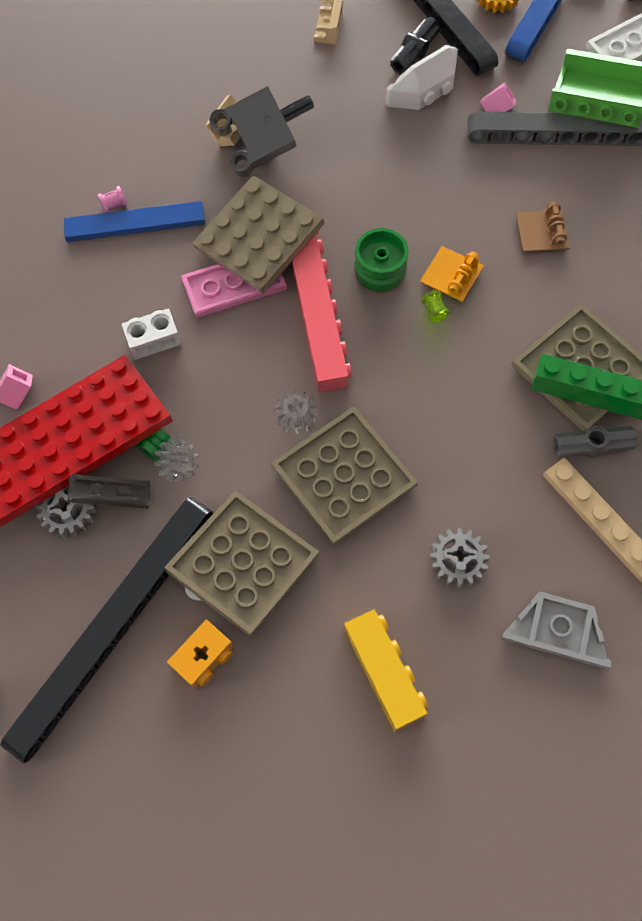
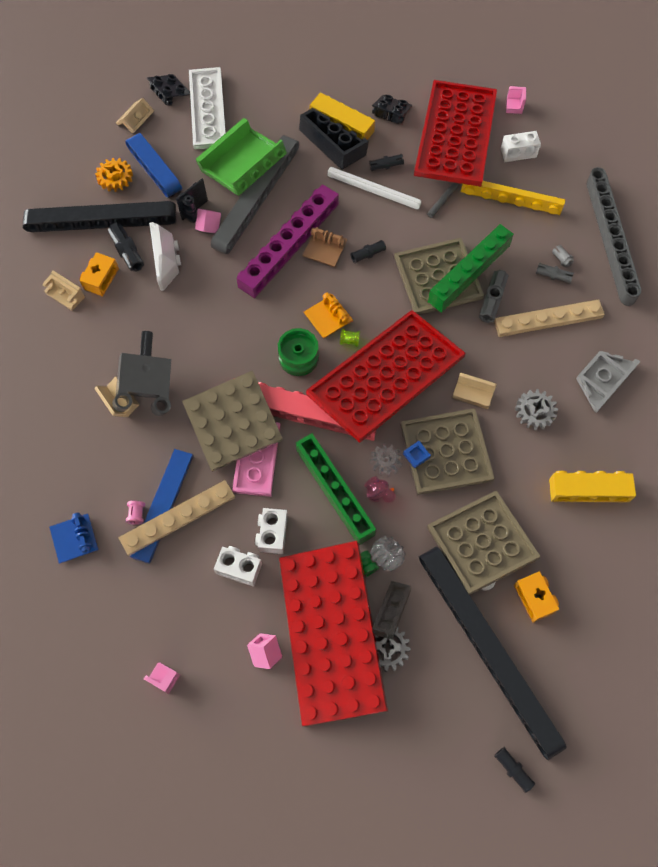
camera: 65 degrees left, 0 degrees up
(62, 163) = (73, 538): none -> blue hinge
(92, 319) = (235, 570): none -> white brick
(124, 238) = (176, 518): none -> tan plate
(228, 372) = (335, 489): none -> green brick
(254, 416) = (379, 488): none -> clear pink animal
(315, 437) = (416, 454): none -> blue plate
(367, 39) = (99, 274): none -> light orange brick
(404, 361) = (385, 375): none -> red plate
(442, 474) = (474, 390): none -> tan panel
(511, 68) = (191, 200): none -> black hinge
(527, 188) = (297, 230): none -> magenta brick
(566, 276) = (368, 251): none -> black pin

